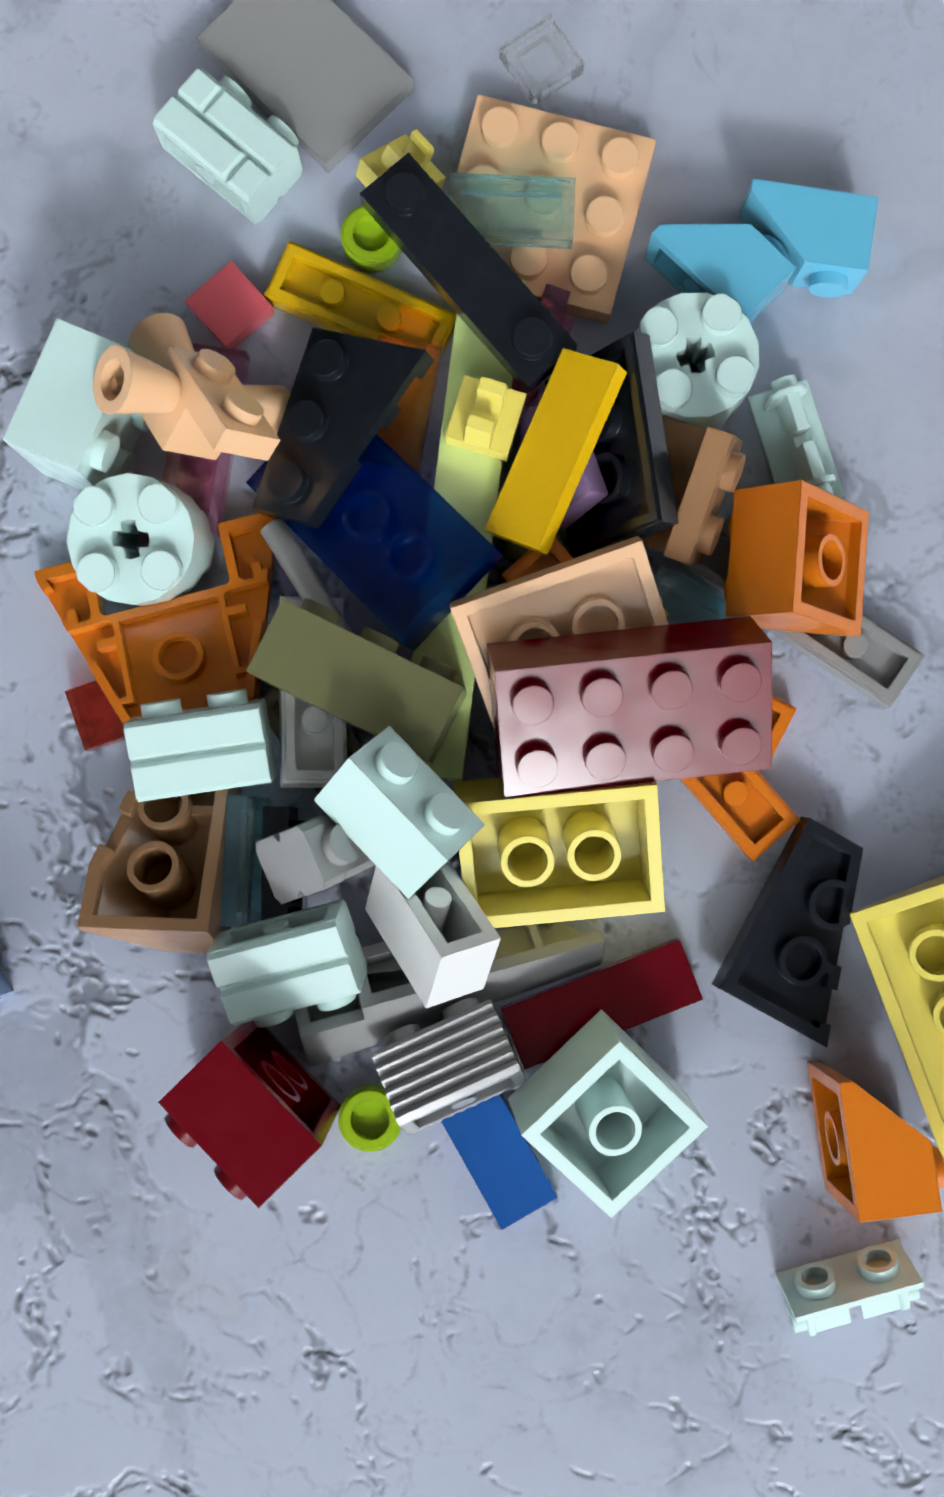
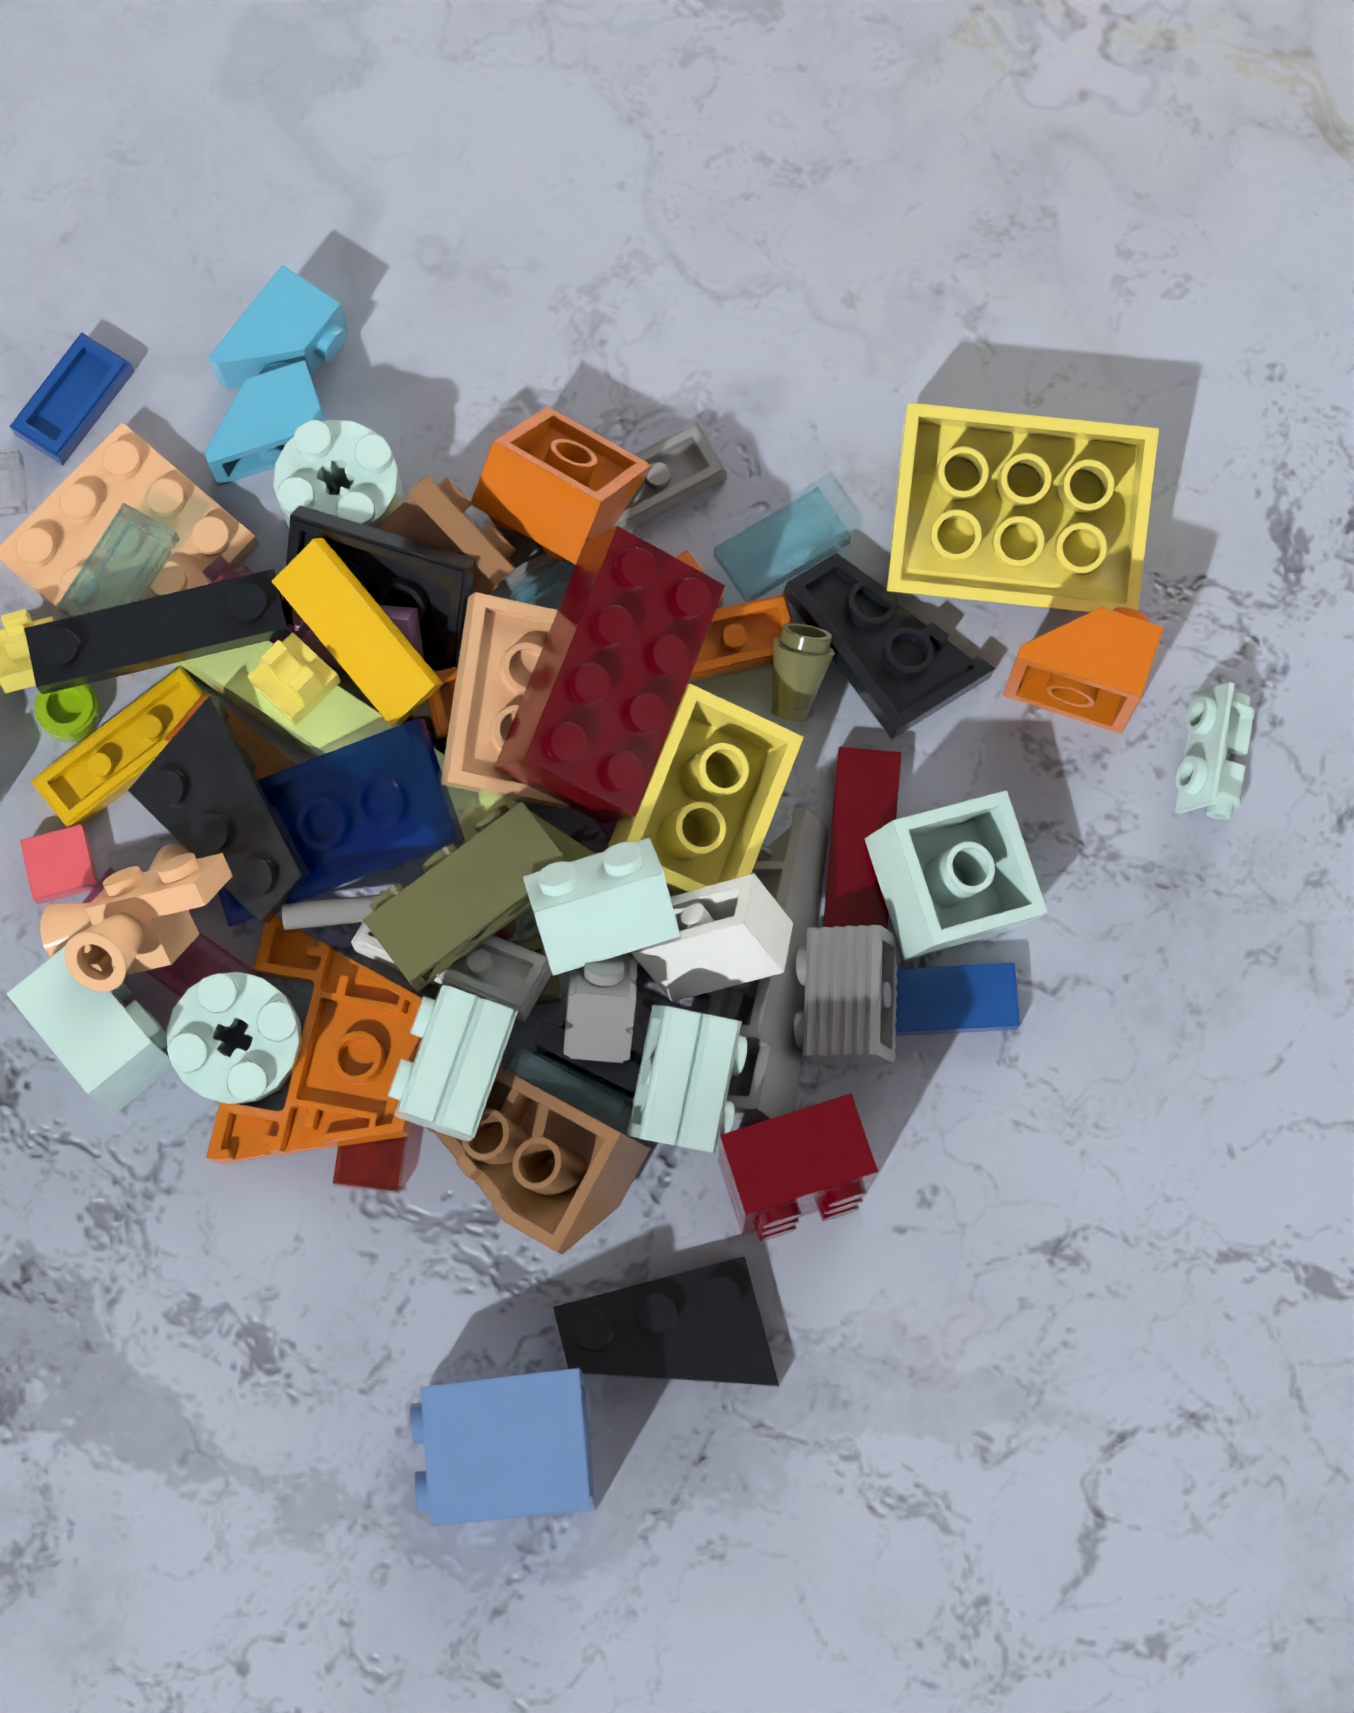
camera: 60 degrees left, 10 degrees down
(84, 1049) = (674, 1328): none -> black wing
(368, 1119) = (872, 1092): lime tile -> none
(657, 85) = (72, 398): none -> blue tile
(734, 869) = (799, 669): none -> olive cone
(794, 435) = (446, 436): light aqua hinge -> none
(847, 792) = (782, 545): none -> clear light blue tile

